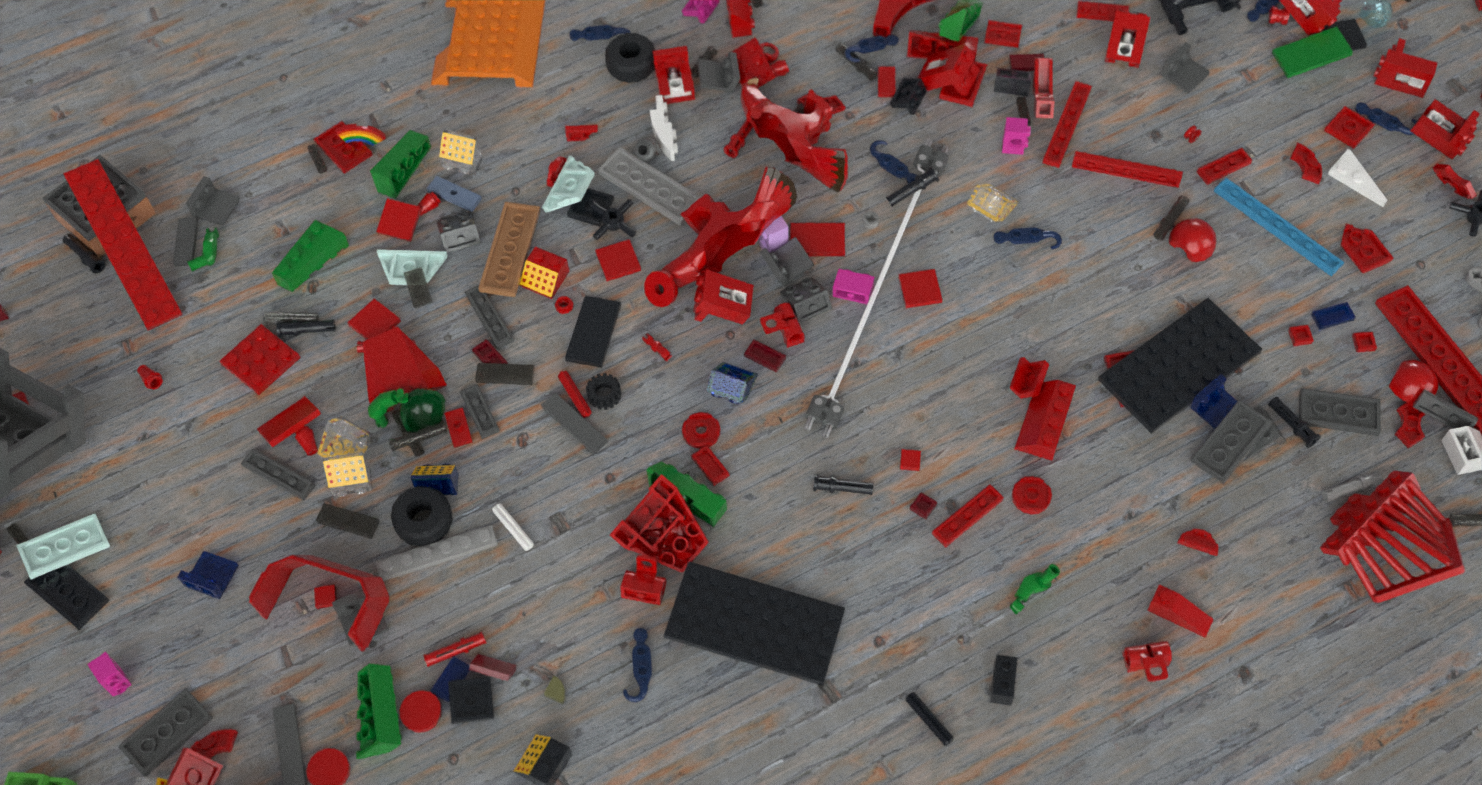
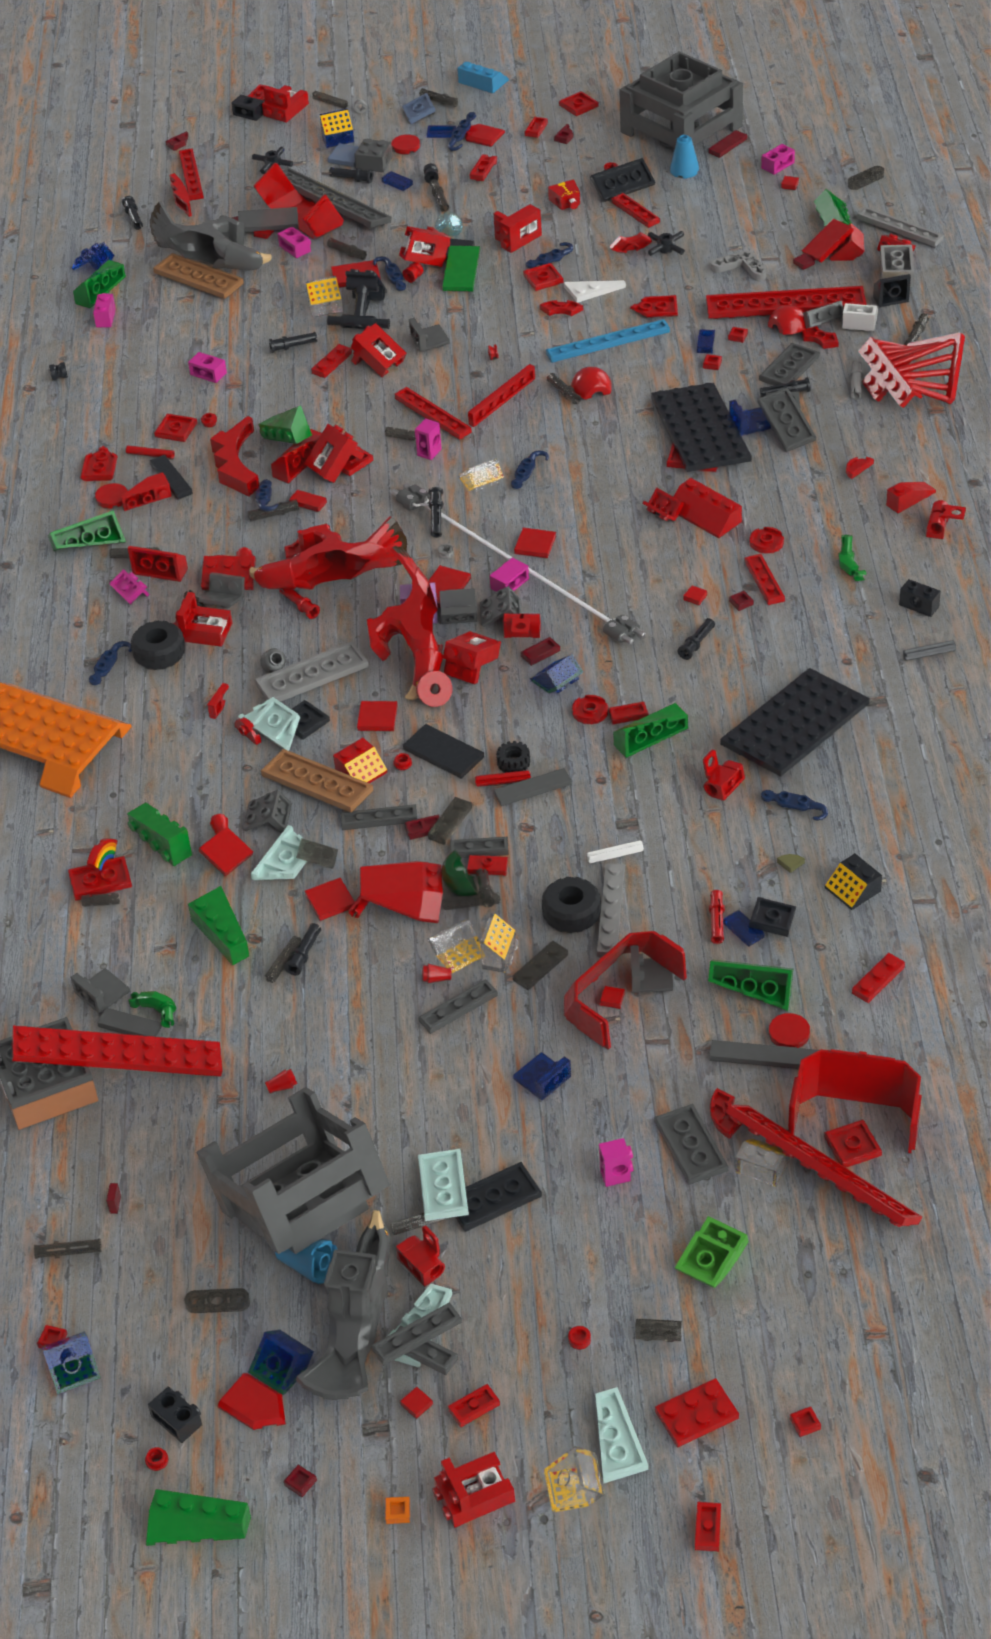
camera: 65 degrees left, 15 degrees down
(87, 256) = (93, 1106): black pin -> none
(259, 359) = (316, 993): red plate -> none
(288, 421) = (408, 979): red tile -> none
(381, 404) = (439, 896): green arm -> none
(420, 711) = (764, 952): red tile -> none
(439, 477) = (536, 883): slope -> none
(454, 193) = (223, 805): sand blue tile -> none
(460, 152) = (182, 784): slope -> none
(492, 667) = (749, 894): dark red tile -> none
(613, 219) = (333, 704): black bar -> none
(657, 347) = (497, 710): red piece -> none
(662, 528) = (675, 747): red wedge -> none
(663, 129) = (252, 649): white slope -> none
(891, 163) = (403, 520): dark blue piece -> none
(909, 94) = (333, 489): black bracket -> none
(1003, 33) = (316, 417): red plate -> none
(1012, 82) = (367, 428): black bracket -> none
(1023, 62) = (351, 416): dark red tile -> none
(1043, 88) = (387, 410): red arch -> none
(1224, 166) = (533, 348): red tile -> none
(1445, 129) = (584, 229): red brick -> none

